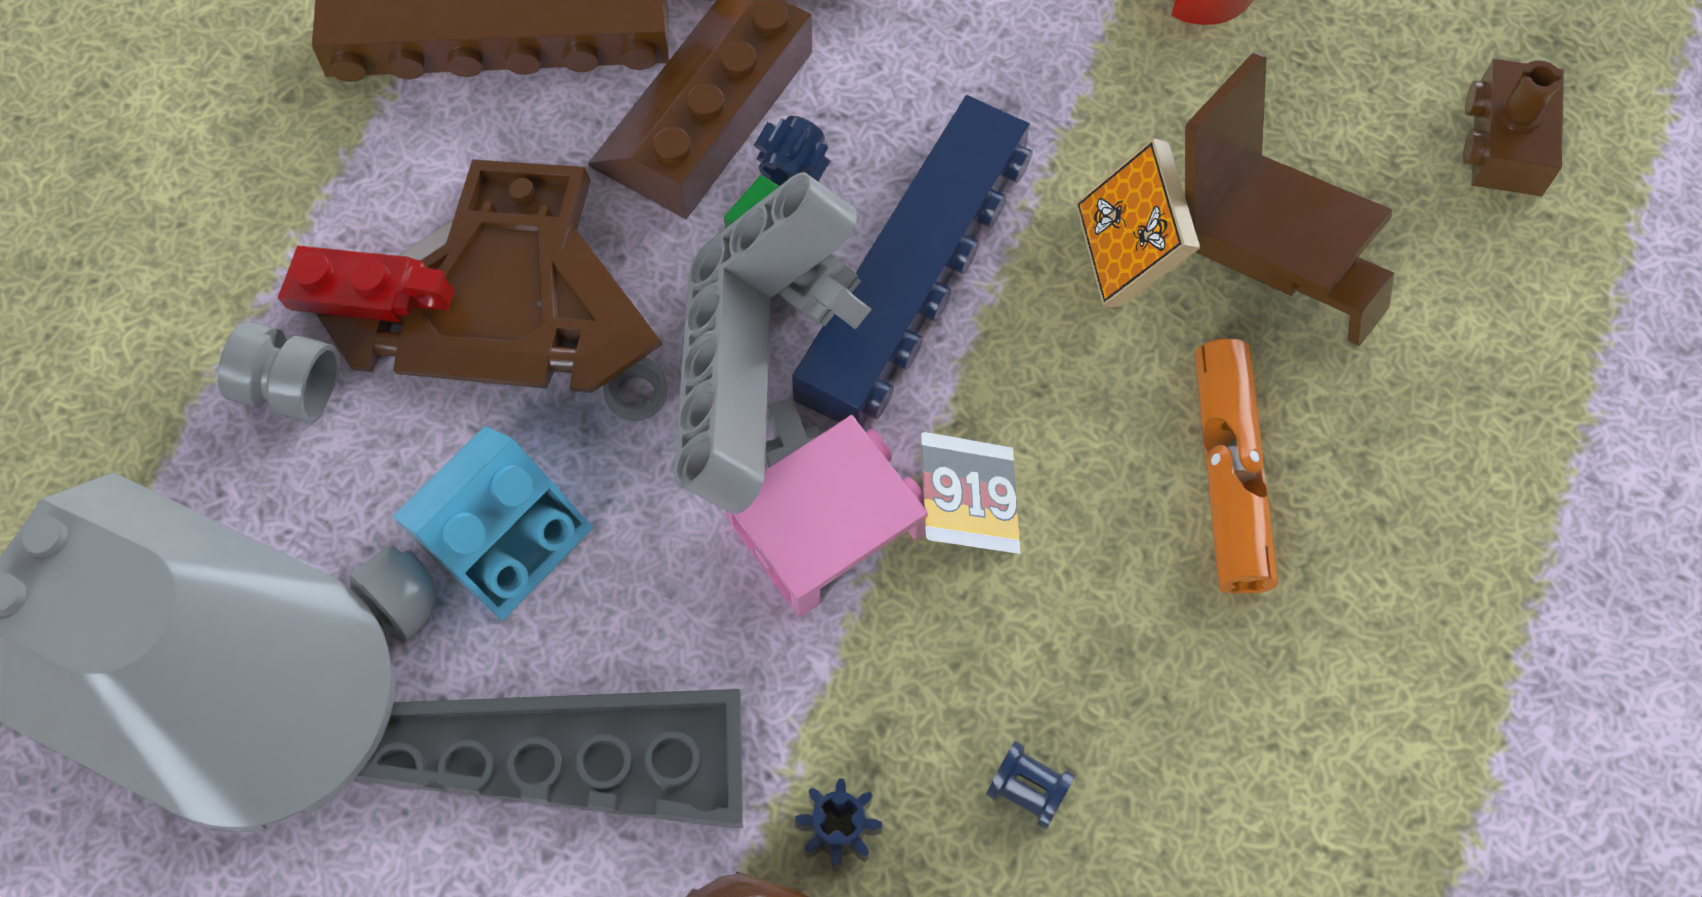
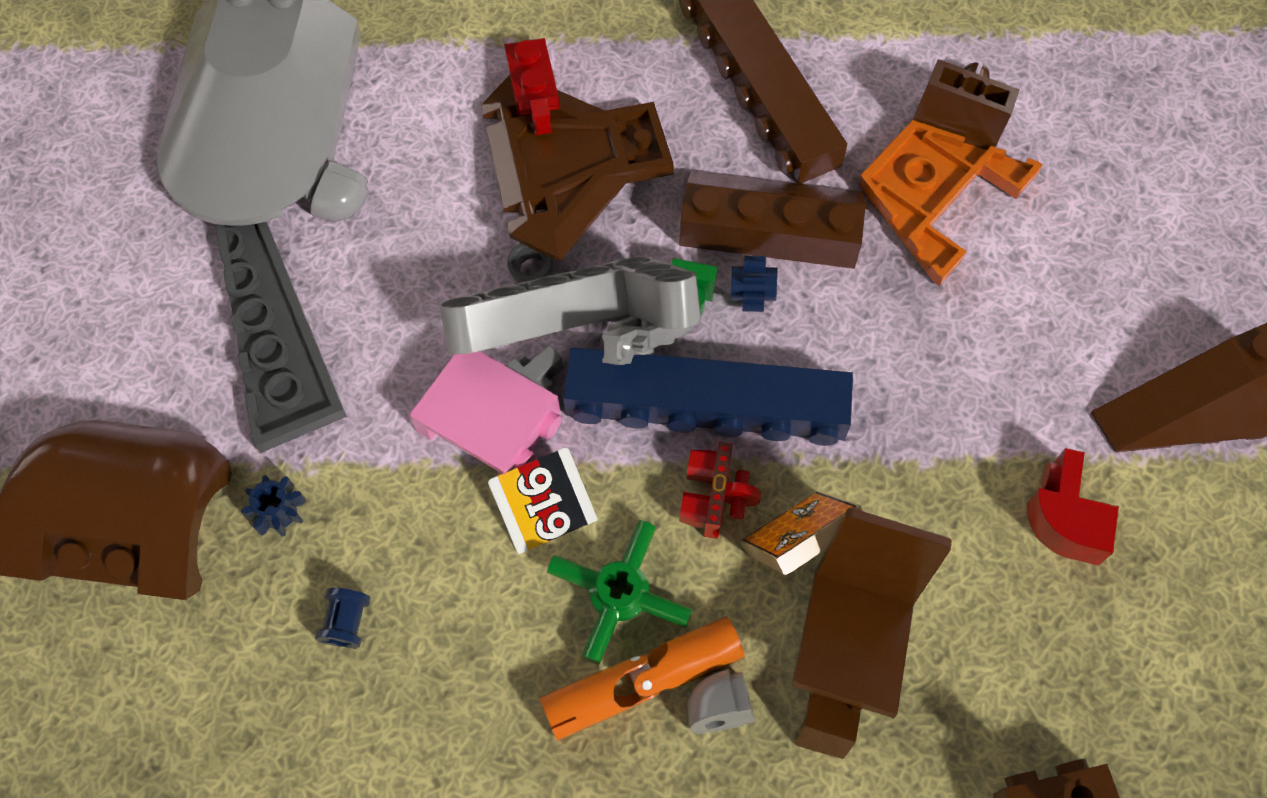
camera: 70 degrees right, 0 degrees up
(268, 366) = (454, 67): light grey wheel -> none
(494, 521) = (403, 224): medium azure slope -> none
(1043, 292) = (713, 468): none -> red hips
(1129, 465) = (627, 607): none -> green bar
(1290, 393) = (719, 703): none -> light grey piece

